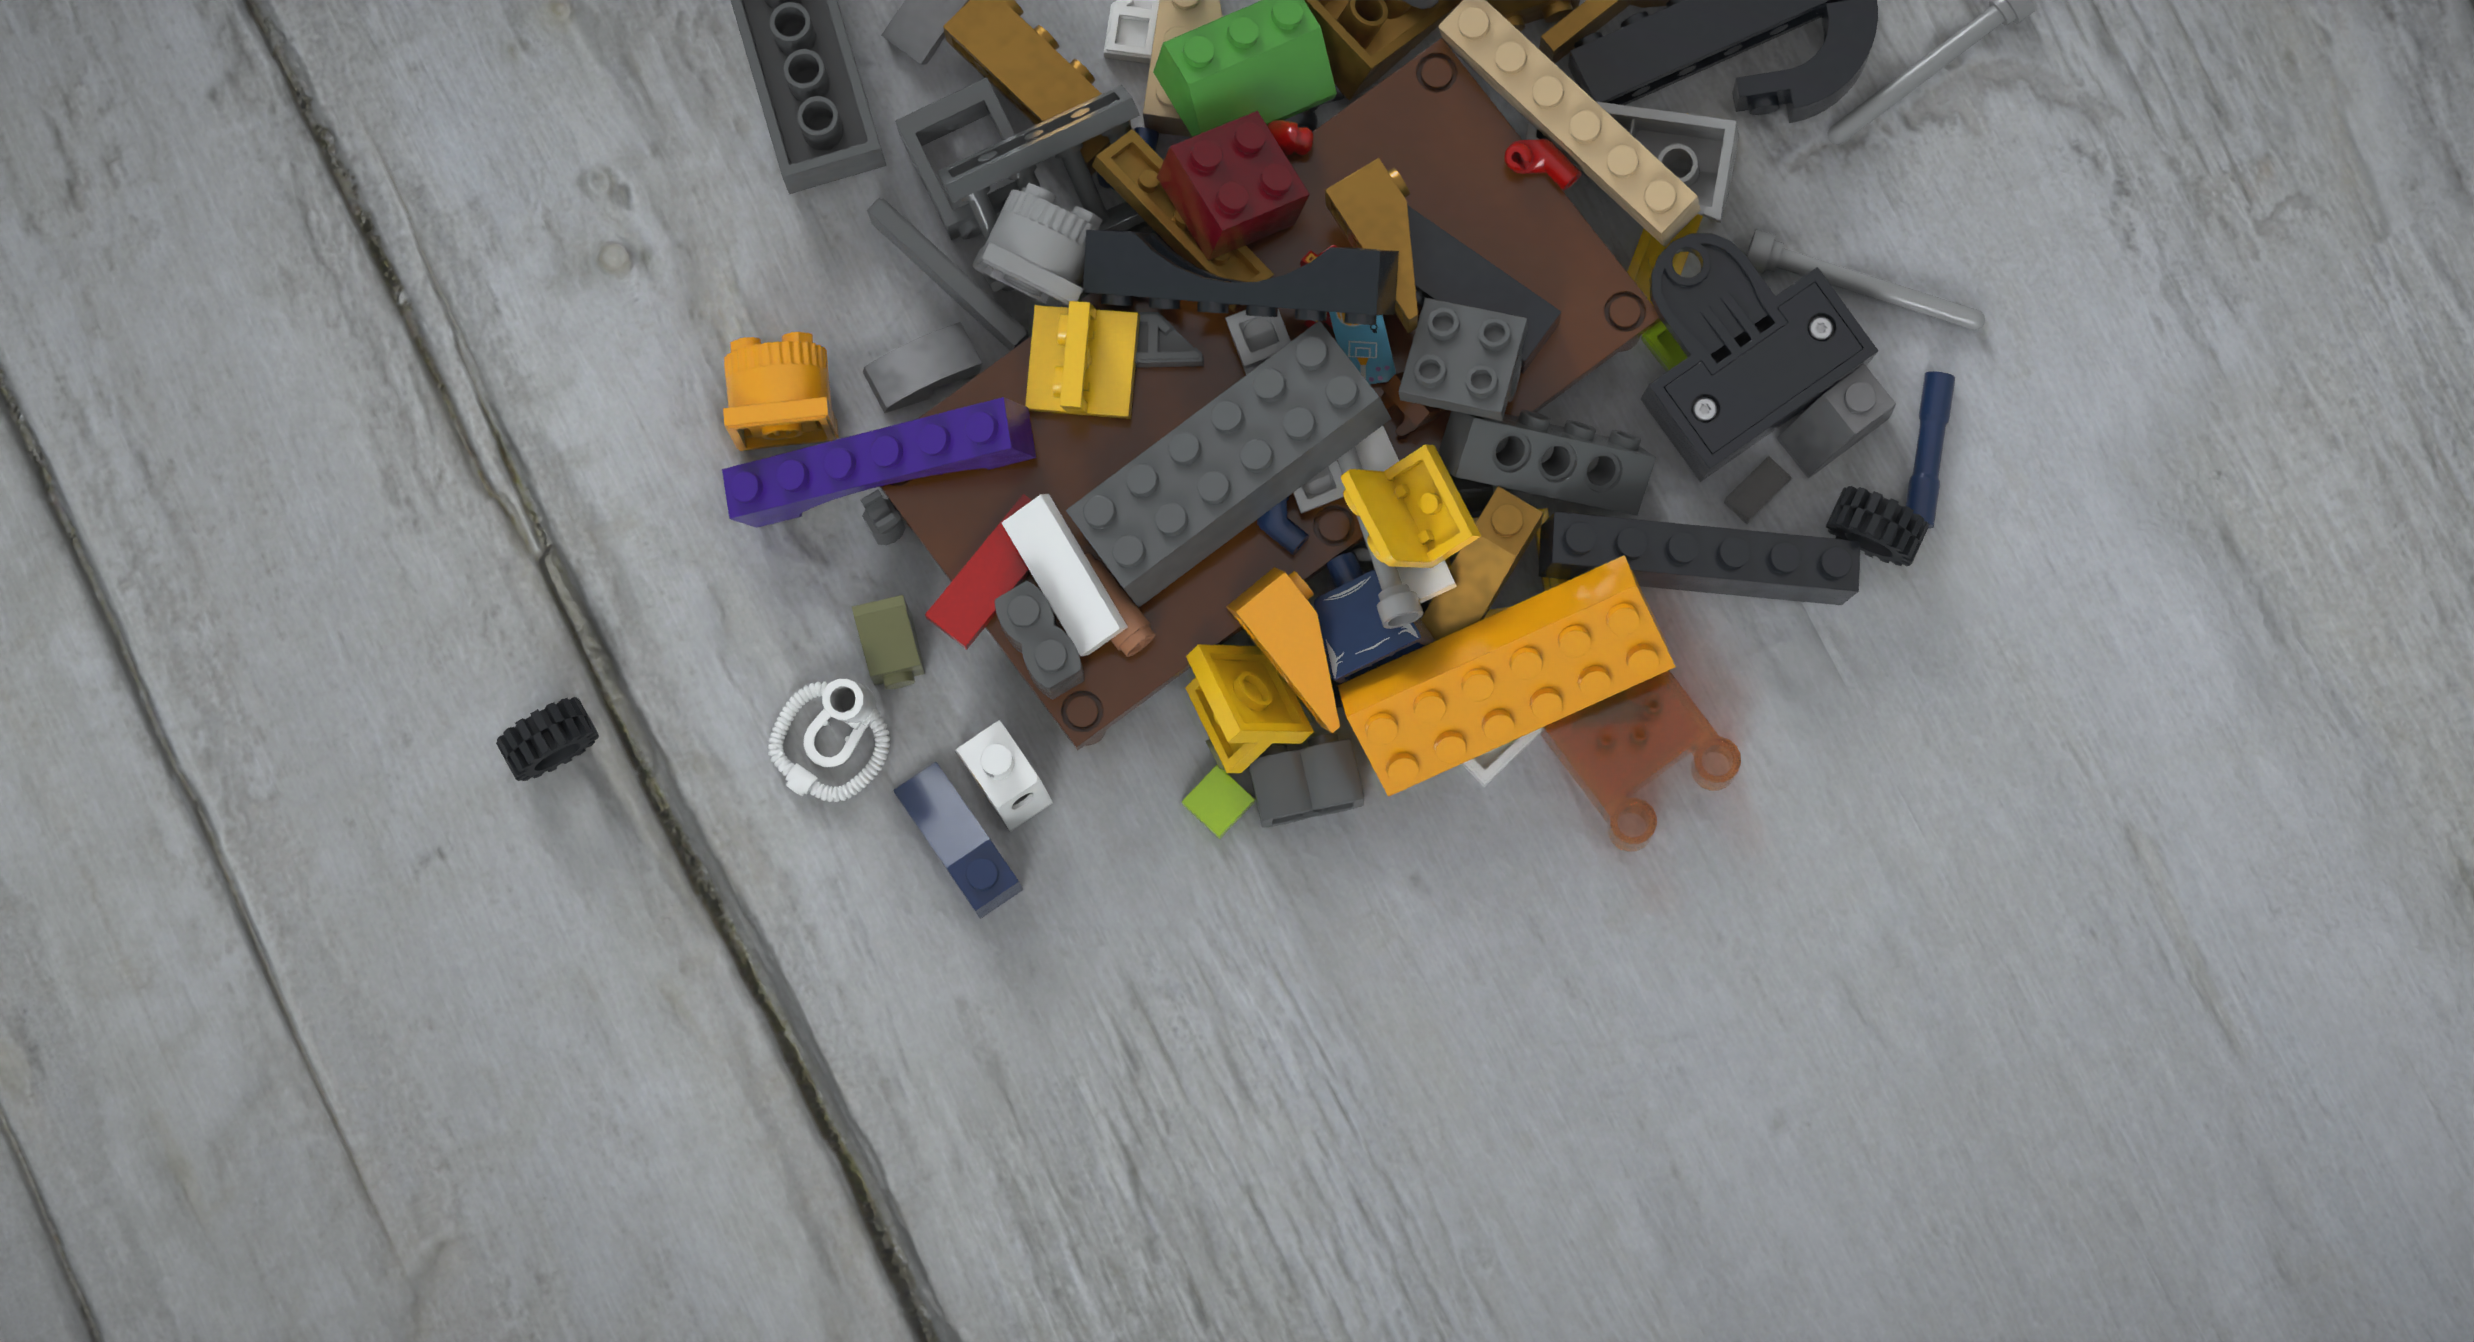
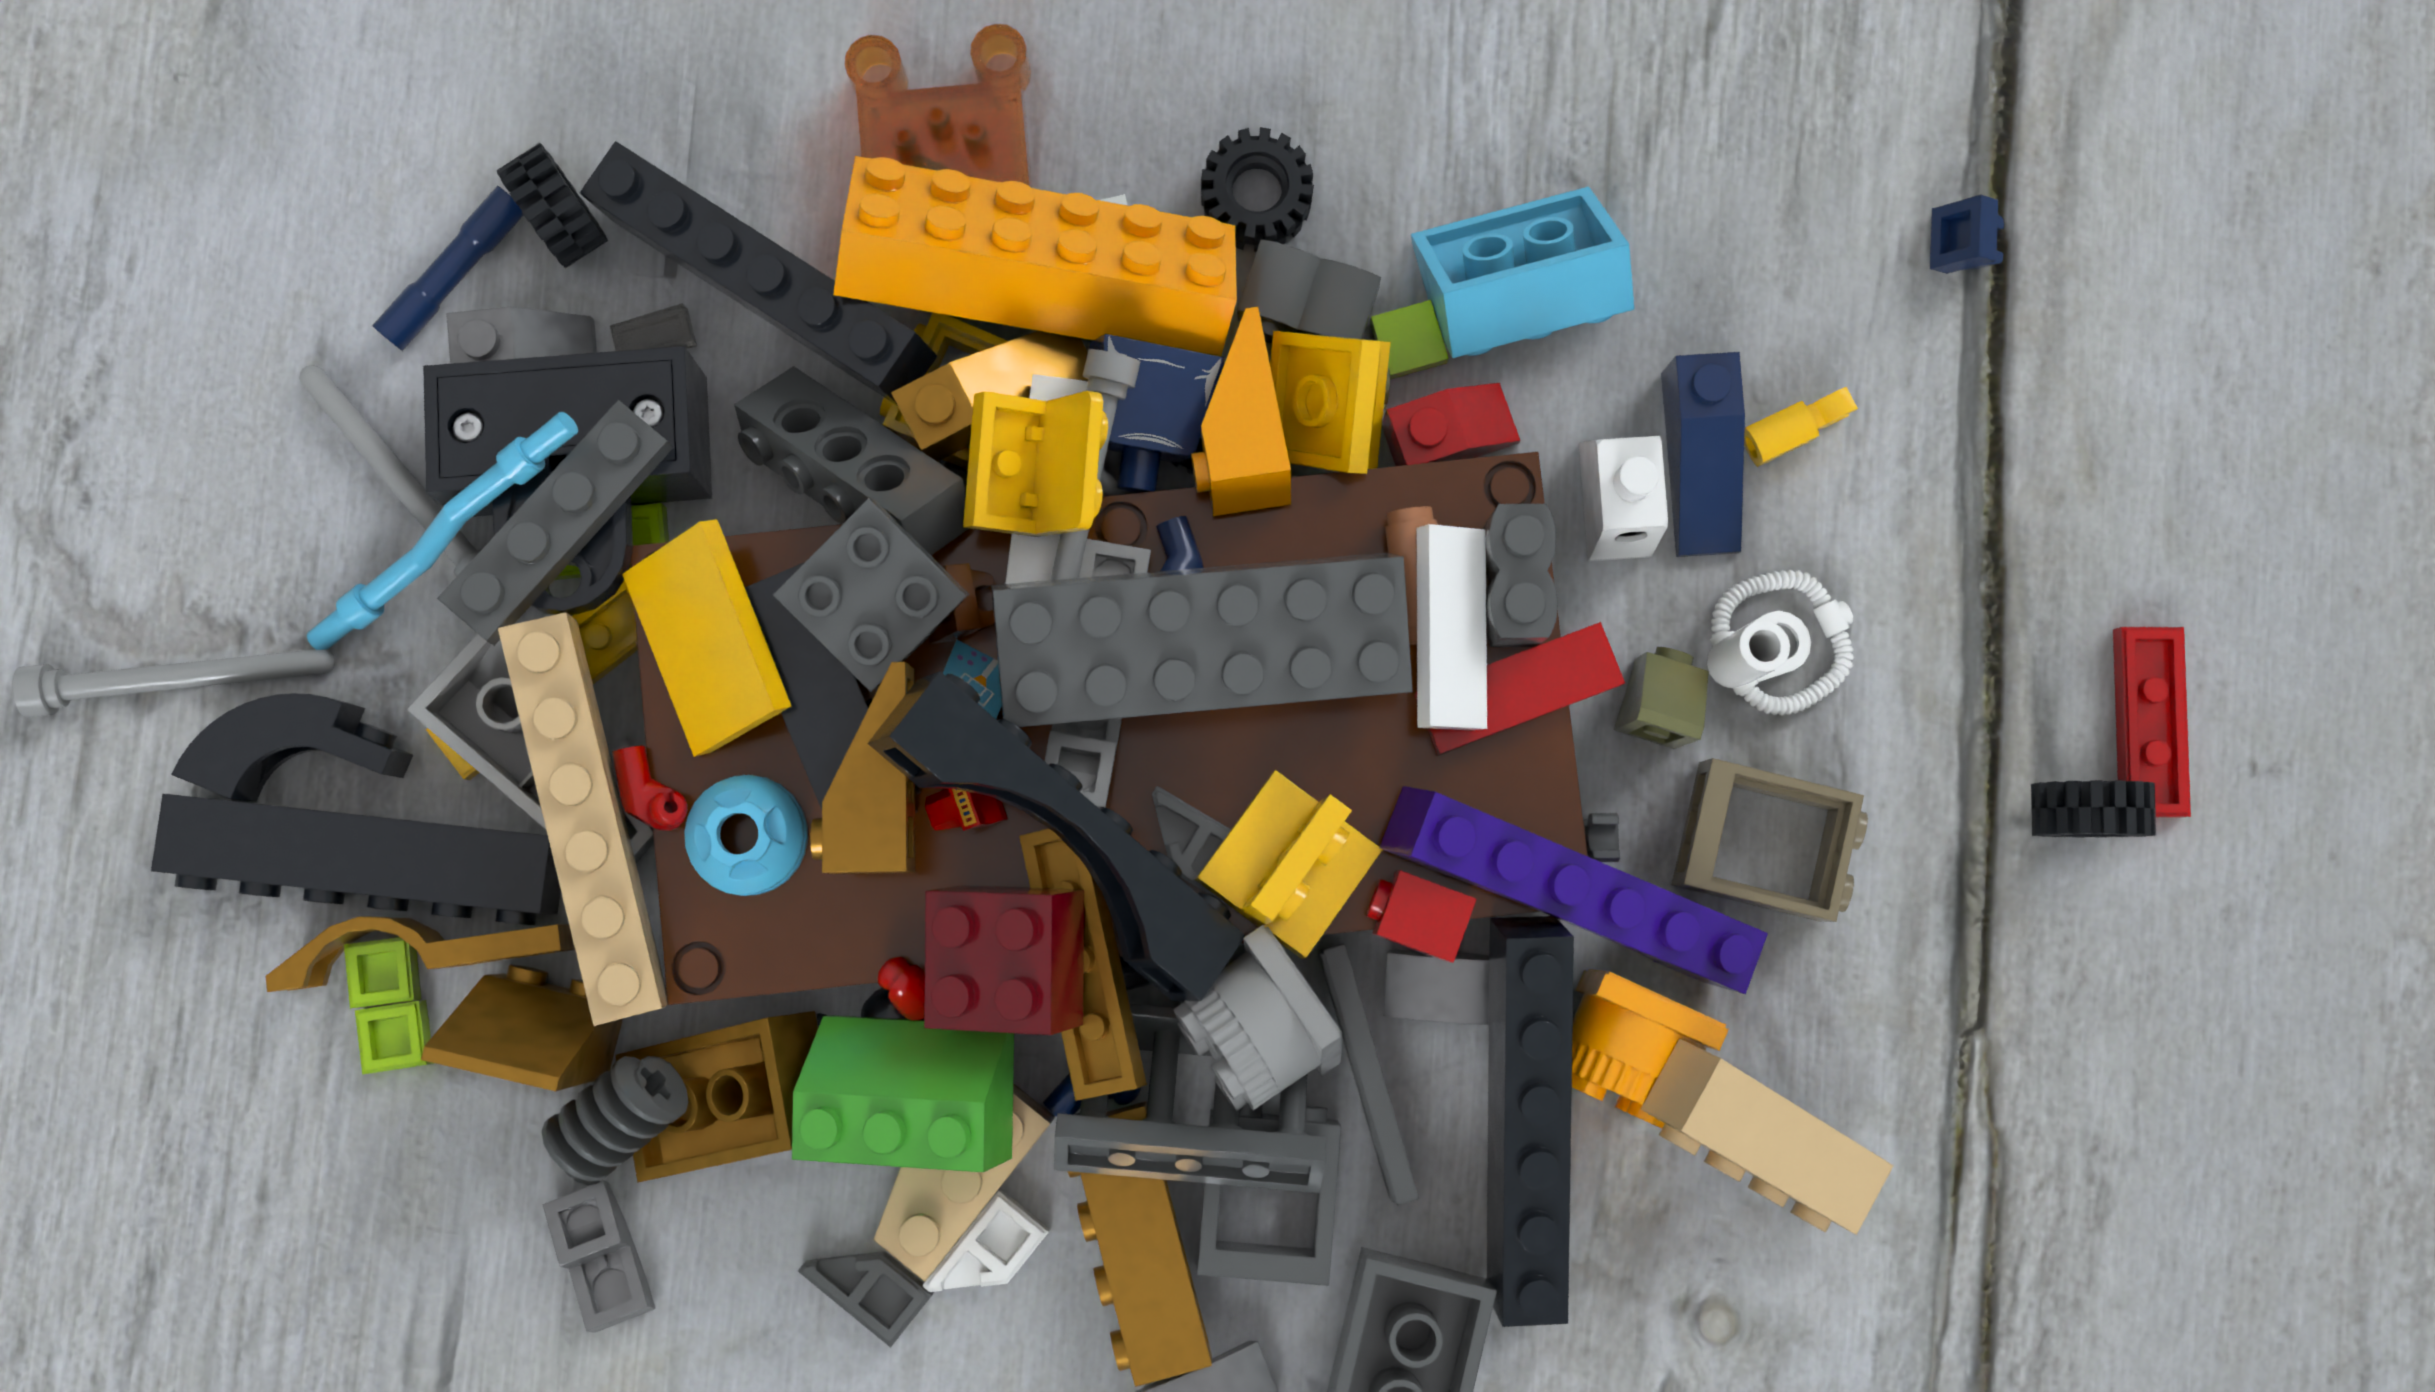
camera: 160 degrees left, 5 degrees up
(533, 842) = (2153, 714): none -> red tile
(655, 377) = (1766, 1136): none -> tan brick
(699, 588) = (1705, 821): none -> dark tan window
(823, 297) = (1529, 1119): none -> black brick
(858, 1111) = (1965, 235): none -> dark blue tile
(904, 900) = (1795, 426): none -> yellow bar
(973, 375) = (1420, 915): none -> red brick
(1149, 750) = (1450, 425): none -> red slope
(1166, 895) = (1524, 271): none -> medium azure slope
(1391, 874) = (1258, 153): none -> black tyre
(1455, 197) = (779, 843): none -> medium azure piece
(1561, 275) = (706, 638): none -> yellow tile
(1713, 295) = (555, 522): none -> dark grey plate
(1764, 313) = (515, 464): none -> medium azure bar

